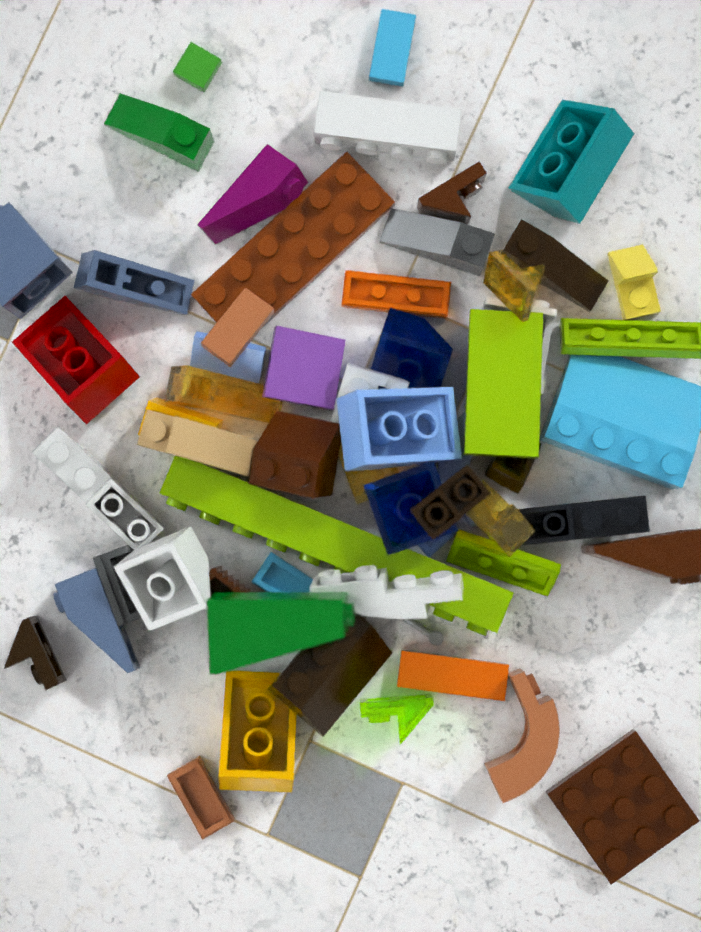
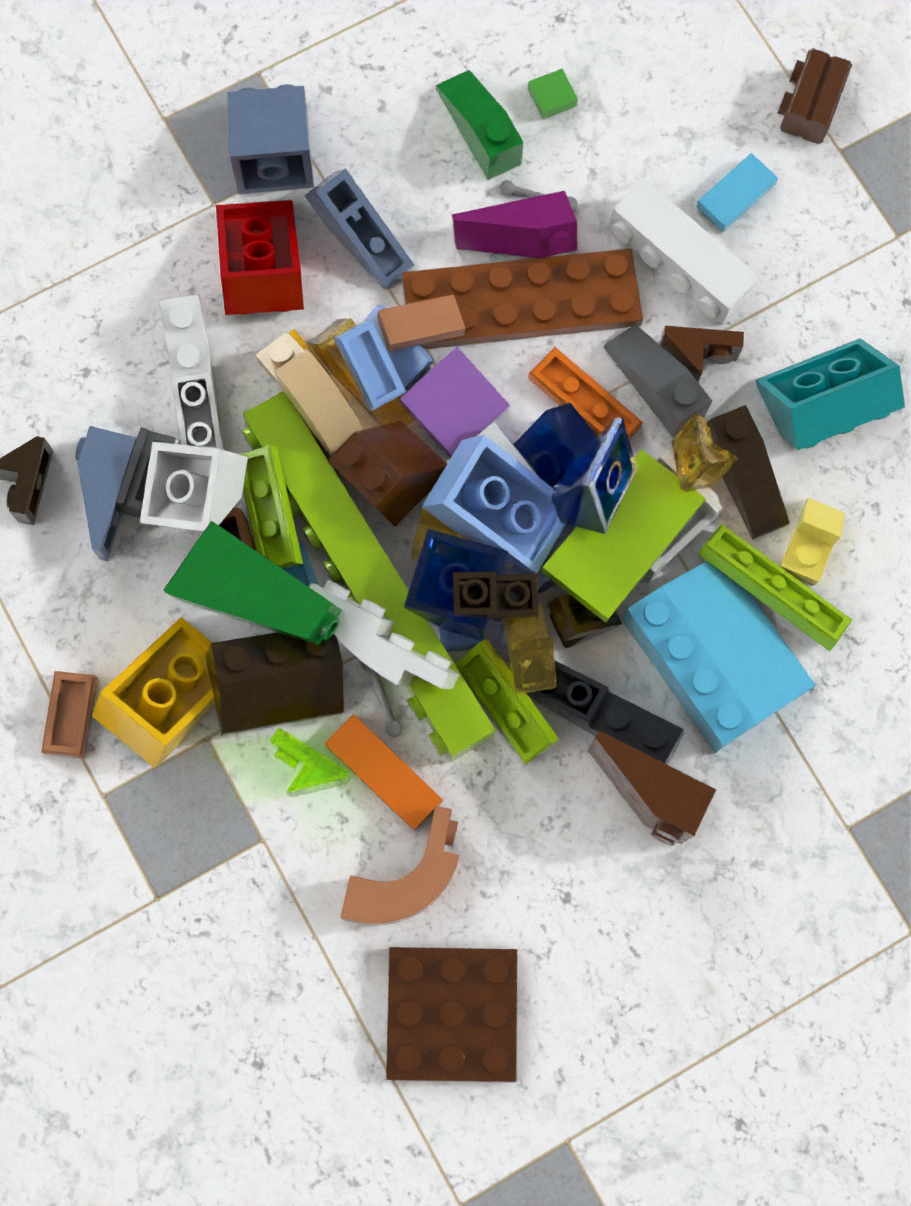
camera: 30 degrees right, 10 degrees down
(219, 168) = (507, 188): none -> light grey hinge
(225, 388) = (369, 364): none -> light blue tile
(234, 549) = (270, 508): none -> lime tile
(460, 363) = (596, 480): none -> clear blue slope

